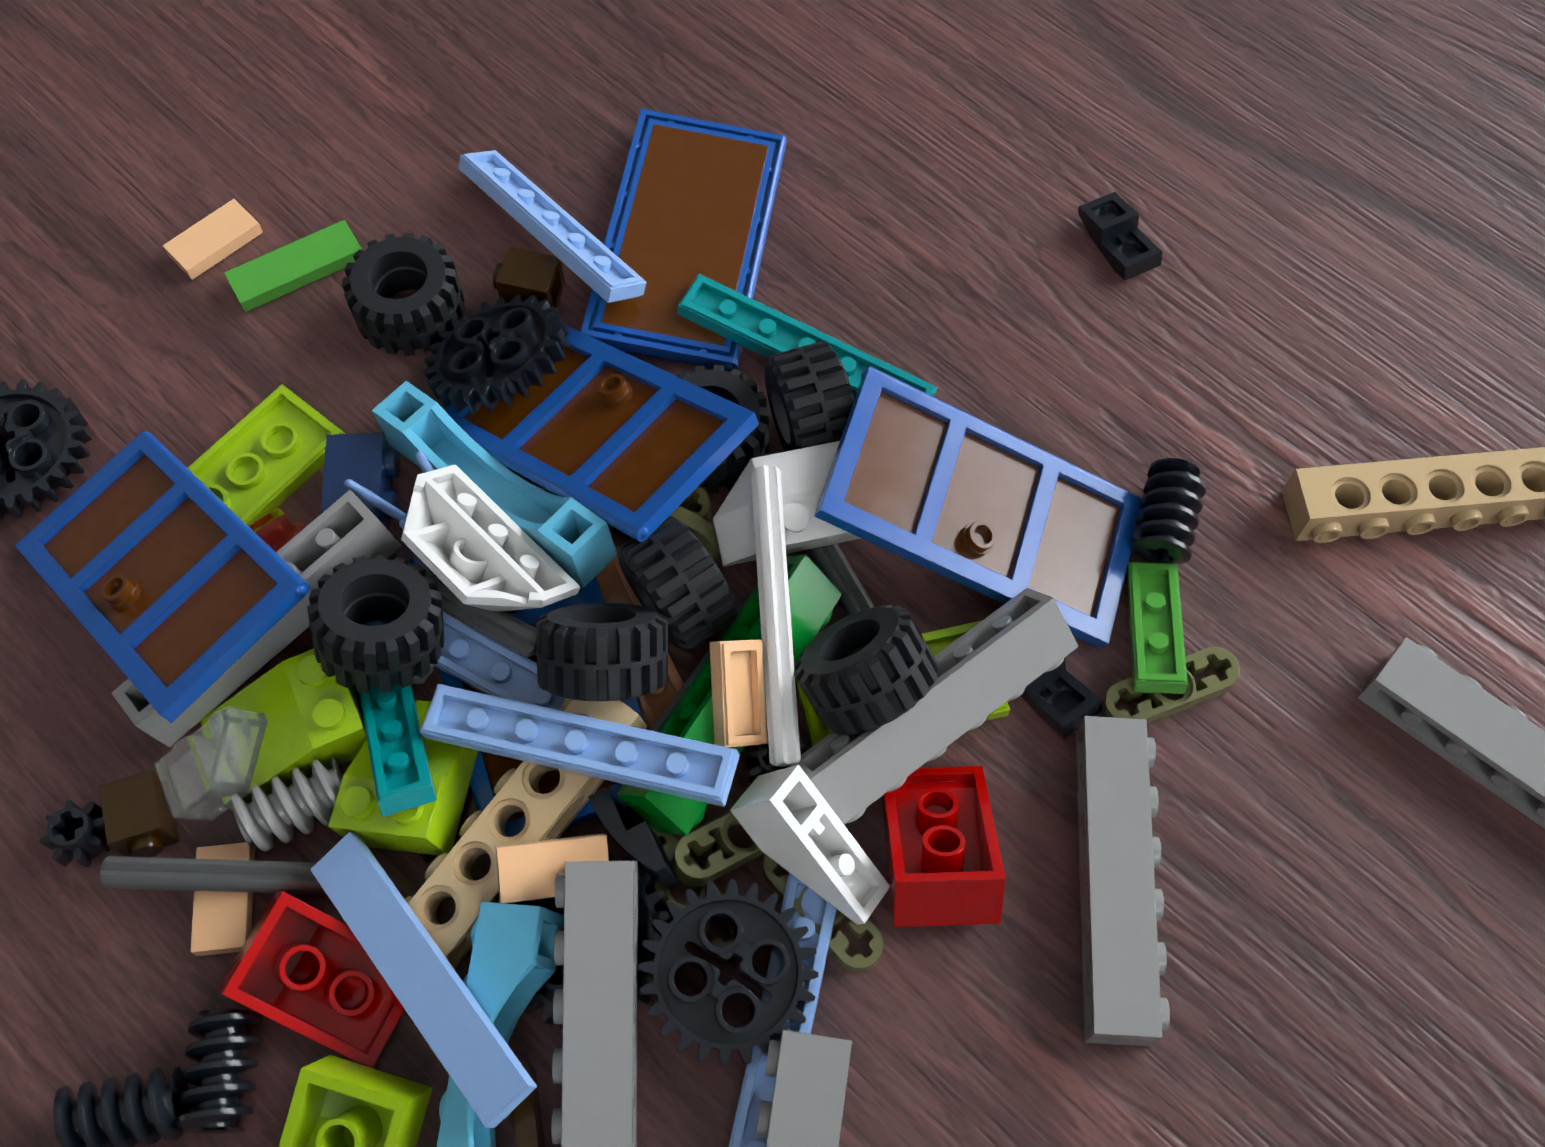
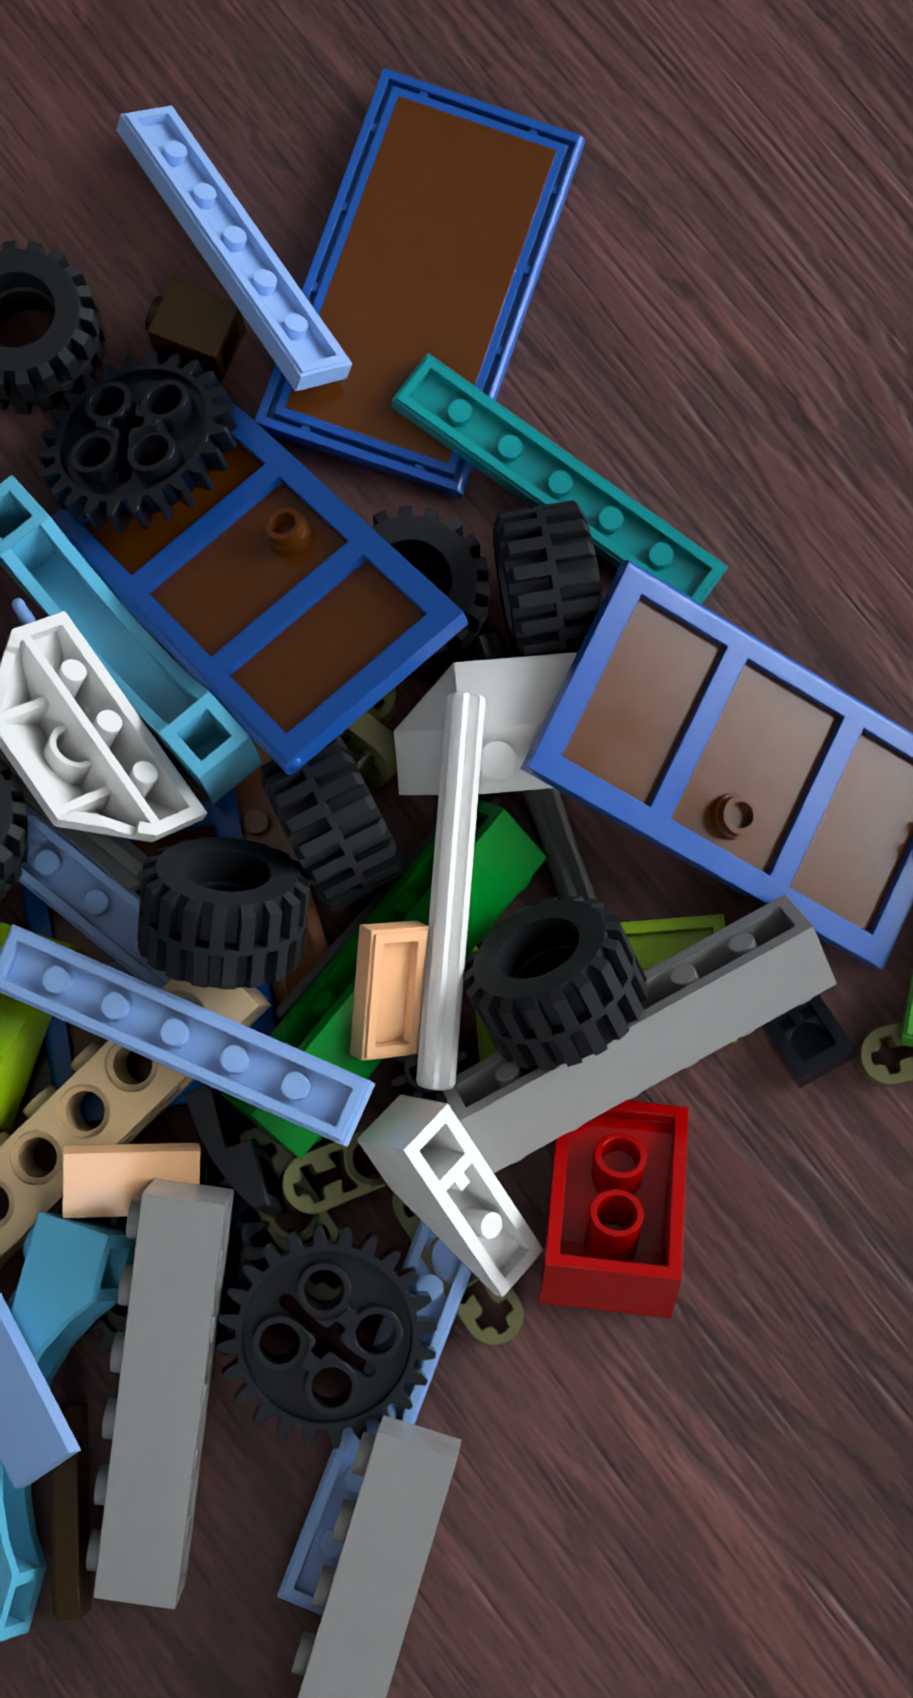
camera: 10 degrees right, 15 degrees up
(1118, 884) = (827, 1284): light grey brick -> none

